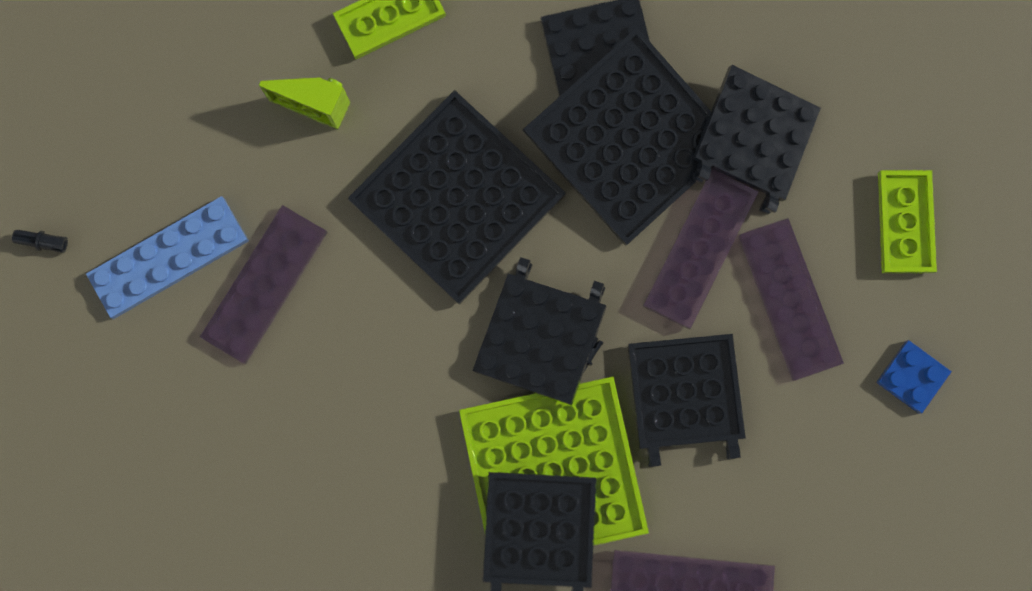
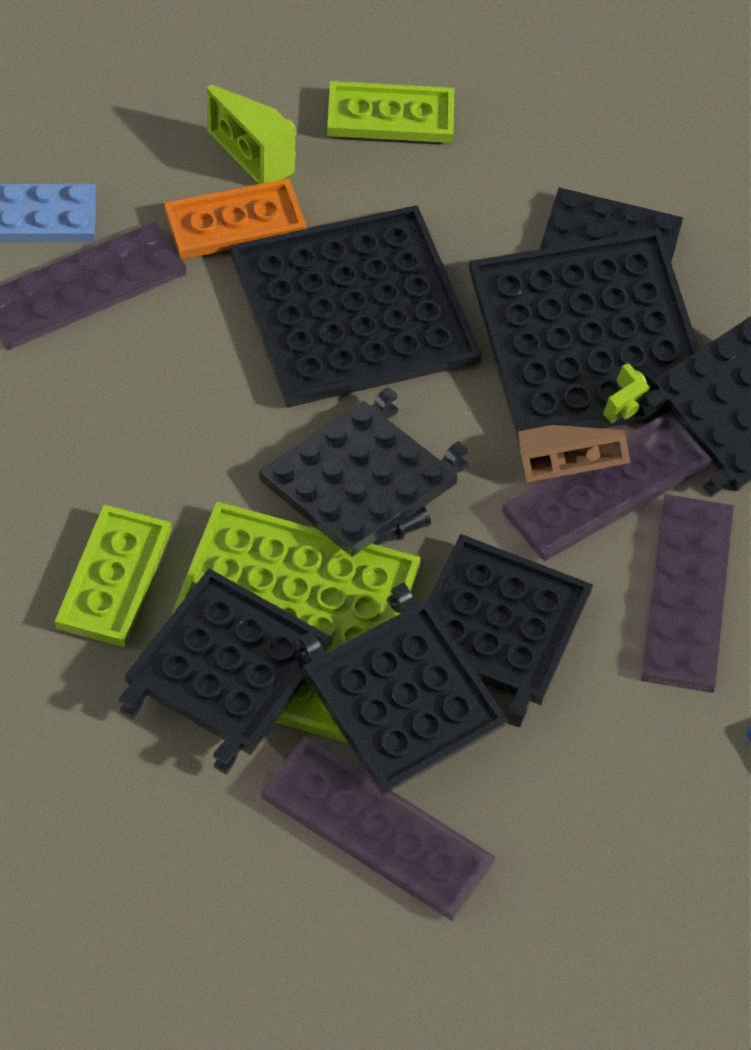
camera: 25 degrees right, 25 degrees down
(335, 170) = (233, 217): none -> orange plate
(425, 501) = (113, 576): none -> lime plate
(662, 492) = (402, 693): none -> black plate
(664, 244) = (570, 450): none -> medium nougat slope
(684, 183) = (627, 400): none -> lime bracket

